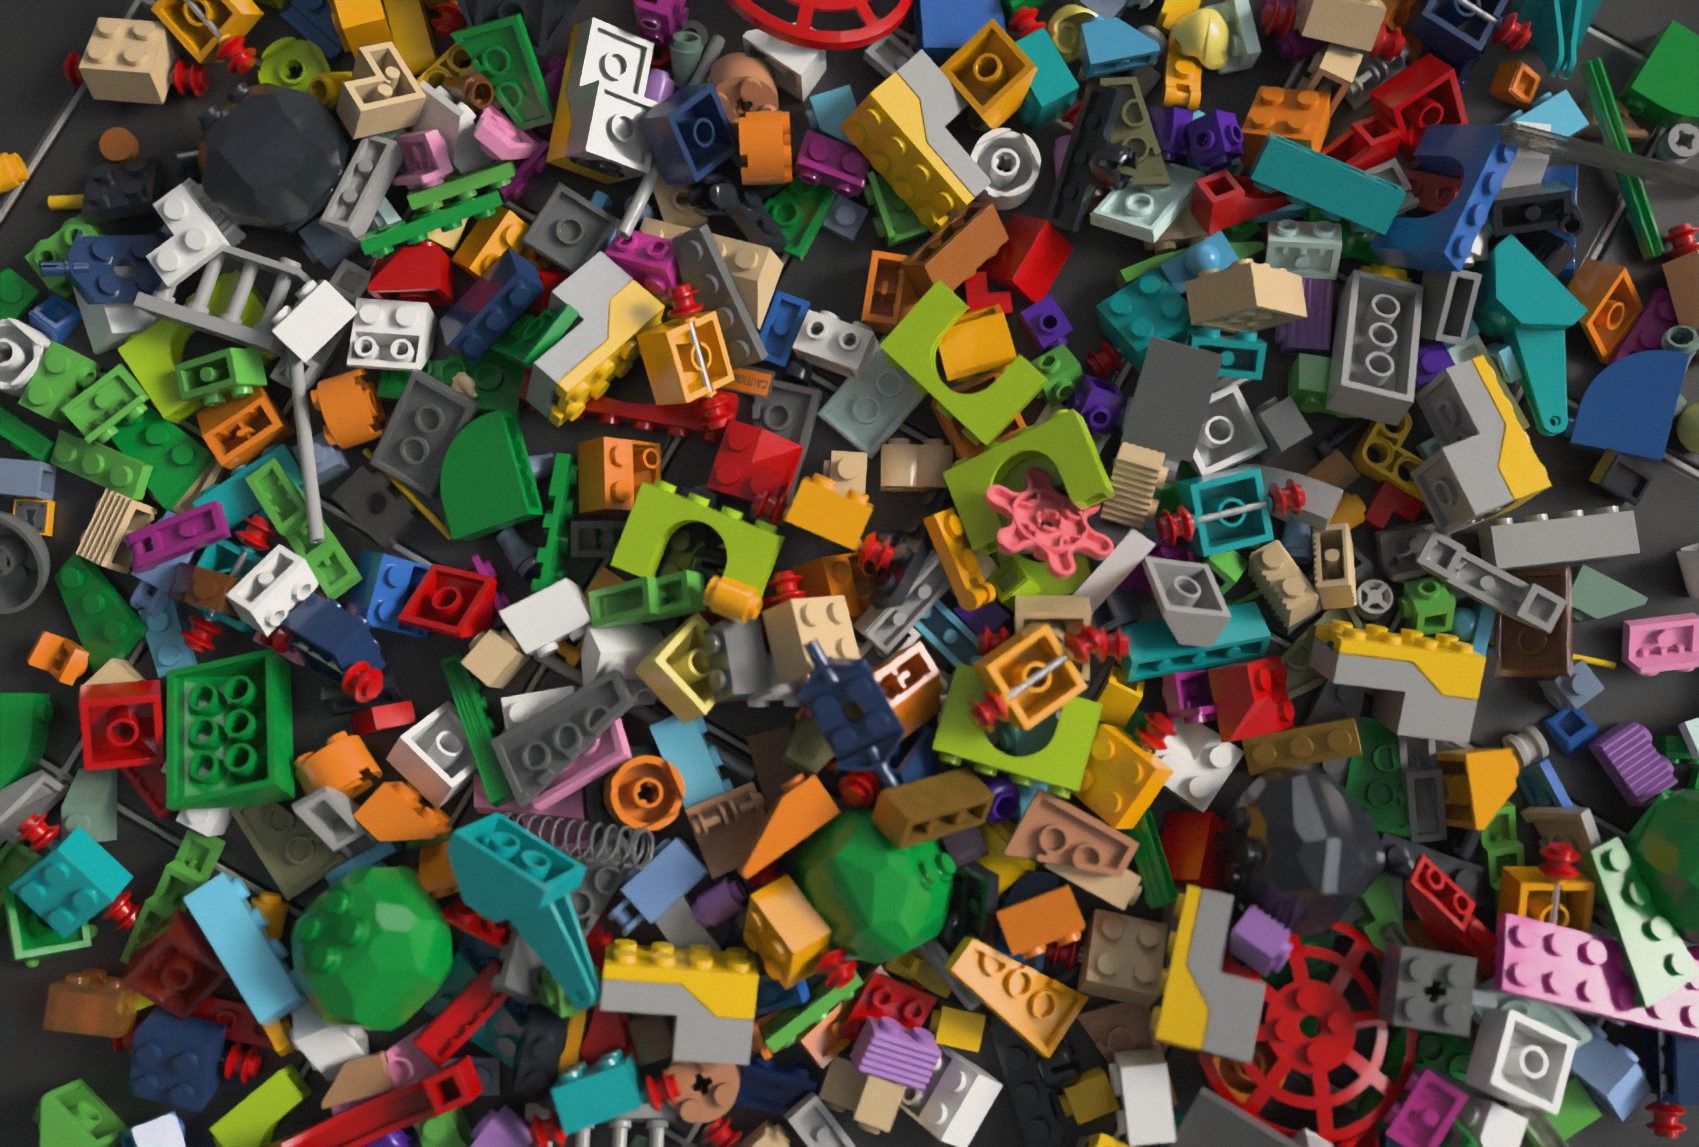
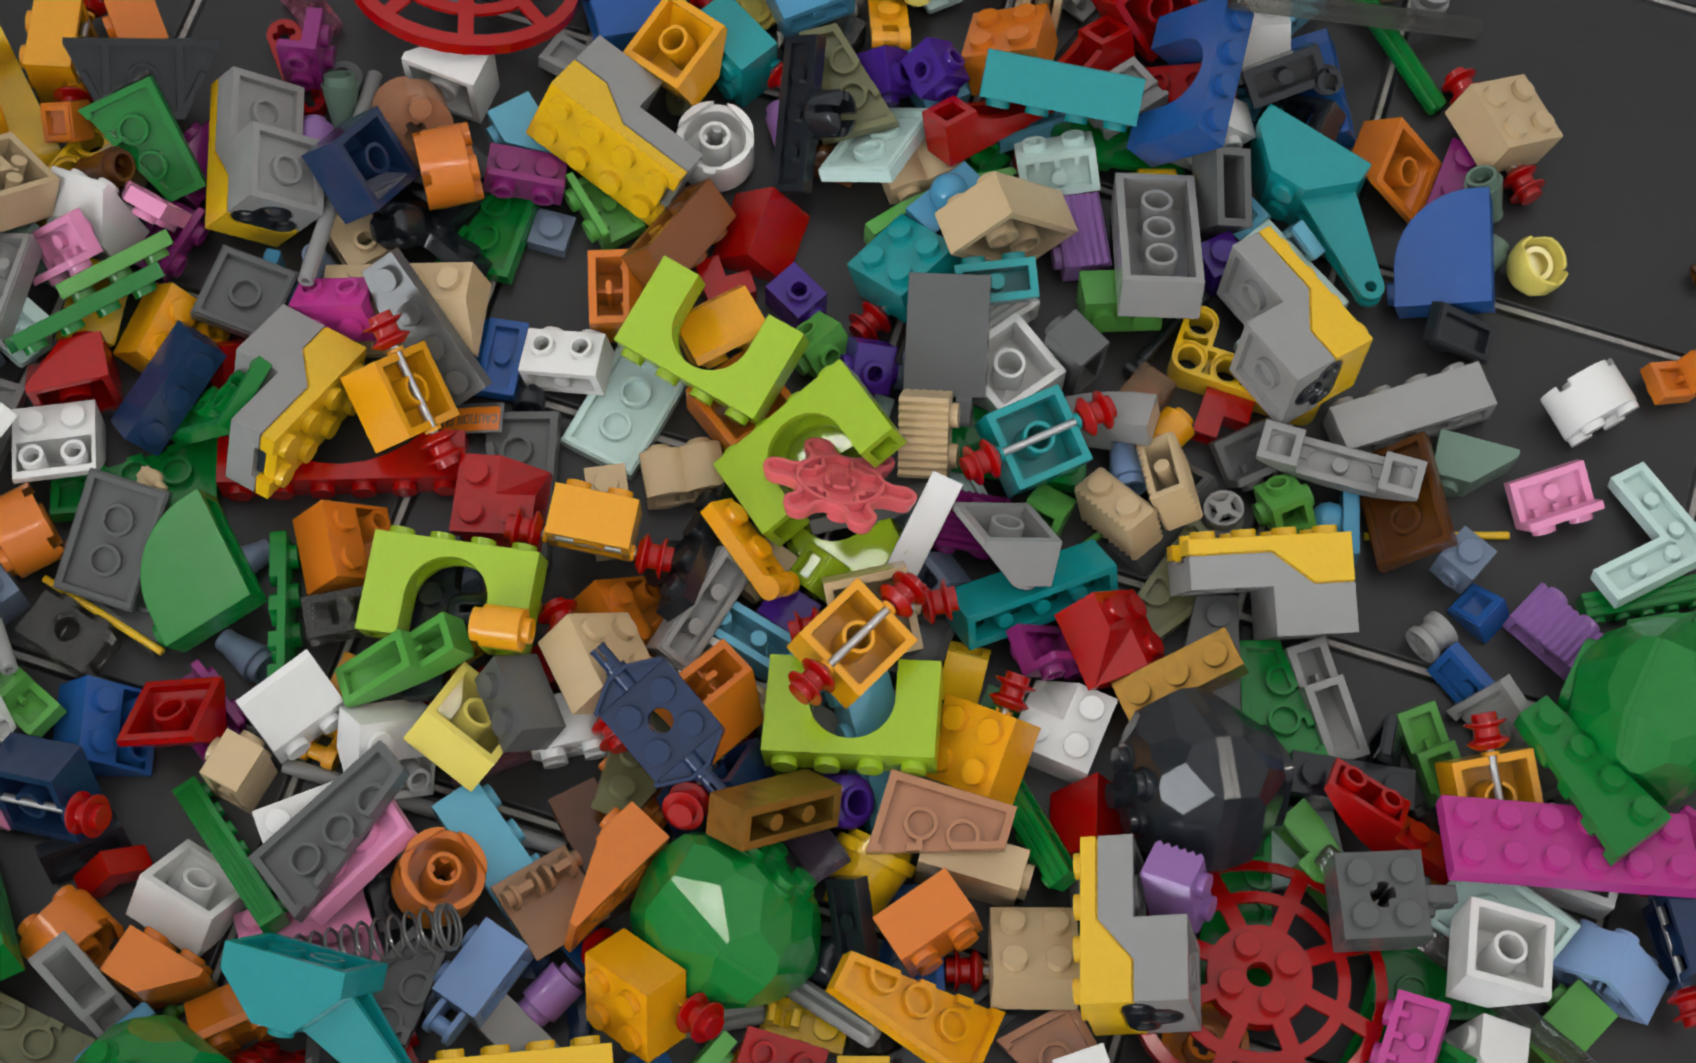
camera: 15 degrees left, 15 degrees down
(437, 38) = (65, 123): none -> orange slope
(1476, 784) = (1375, 668): light orange slope -> none

